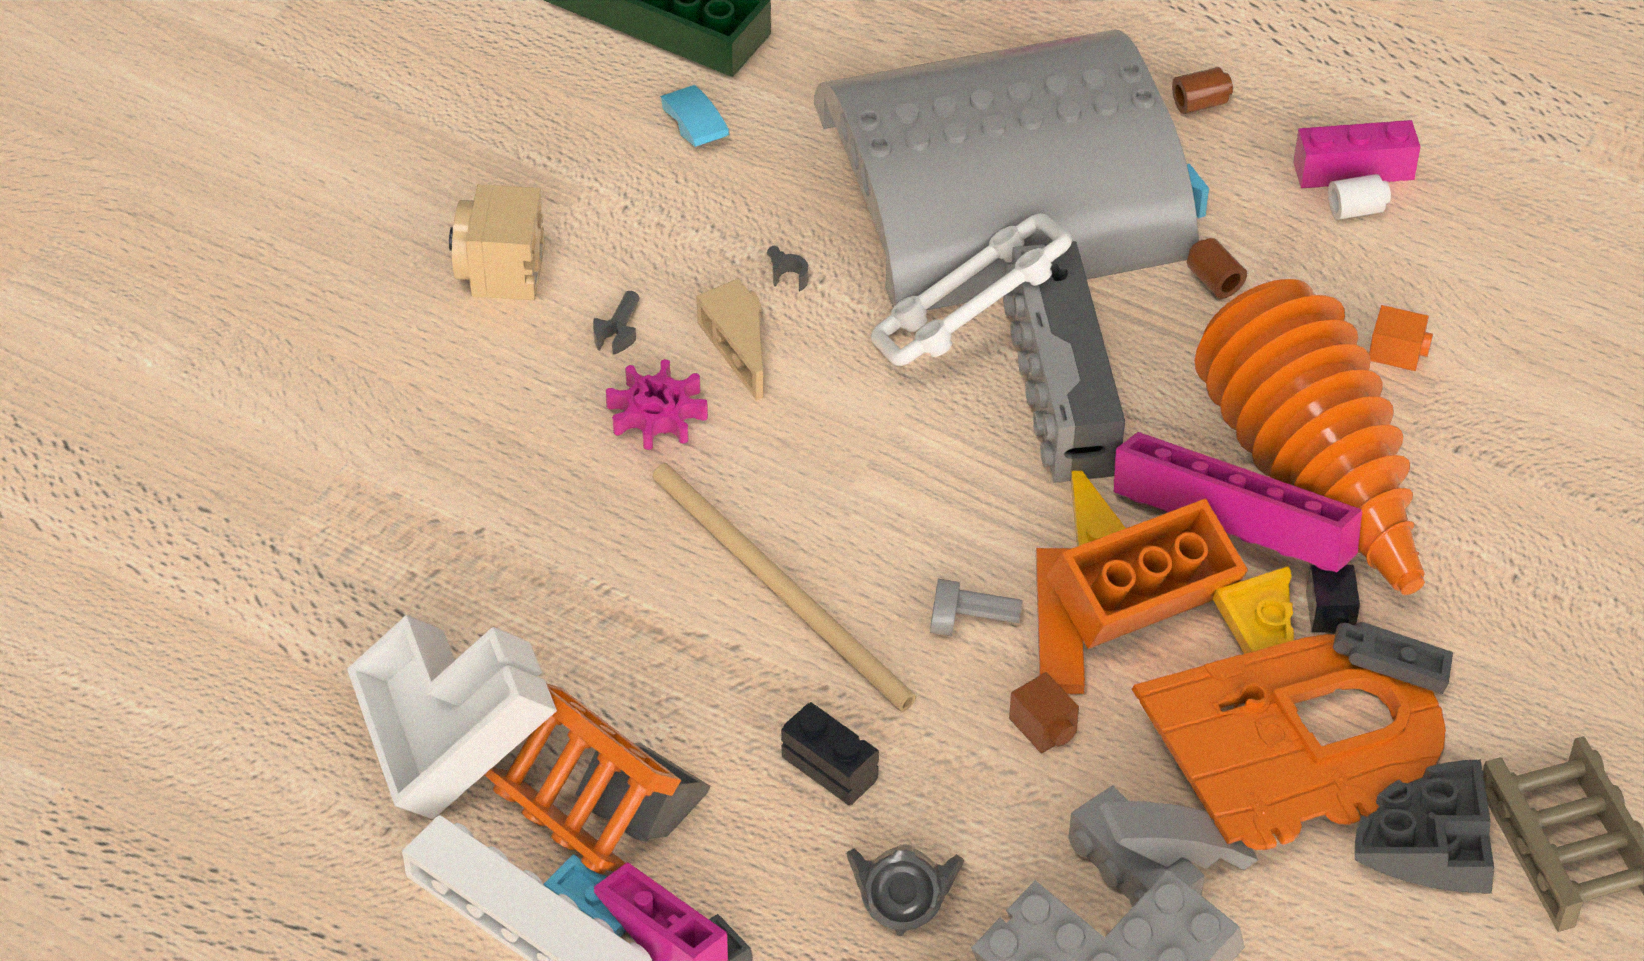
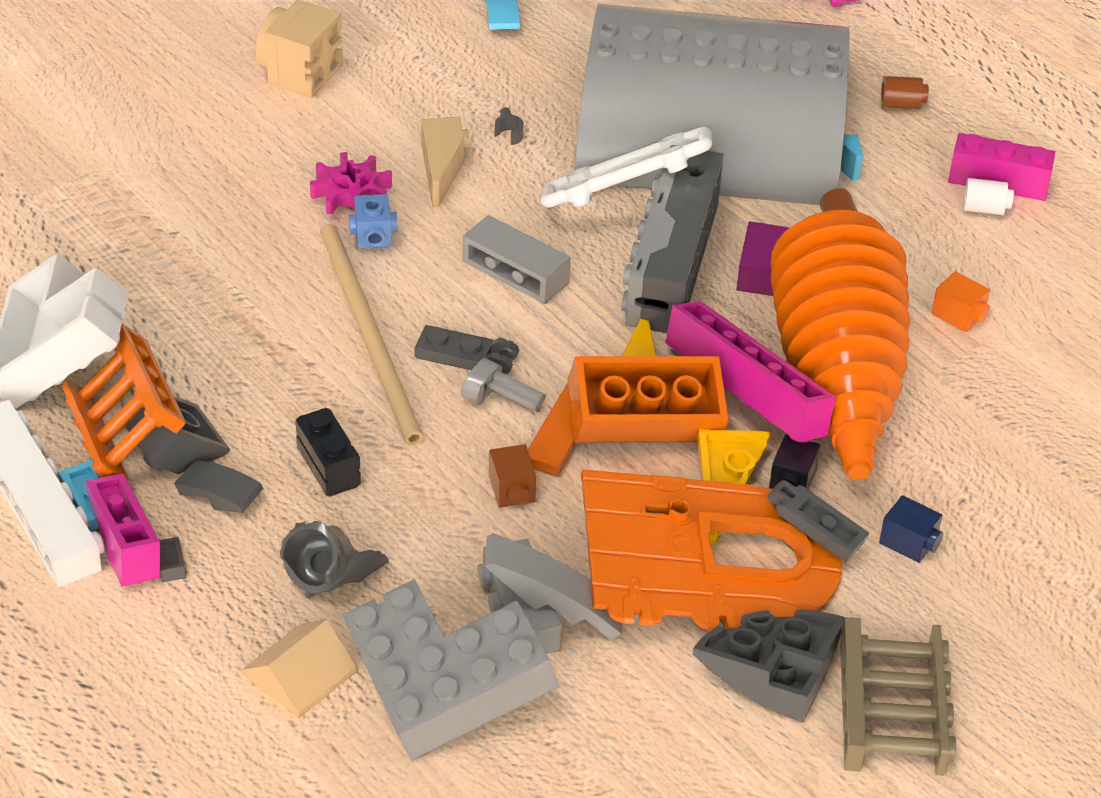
camera: 20 degrees right, 5 degrees down
(625, 335) = (357, 133): dark grey bar -> none
(713, 445) = (373, 221): none -> medium blue brick
(738, 835) = (222, 485): none -> dark grey slope
(897, 440) = (516, 259): none -> light grey brick
(900, 573) = (464, 349): none -> dark grey hinge
(1164, 352) = (755, 262): none -> magenta piece
(1490, 632) = (911, 529): none -> dark blue brick

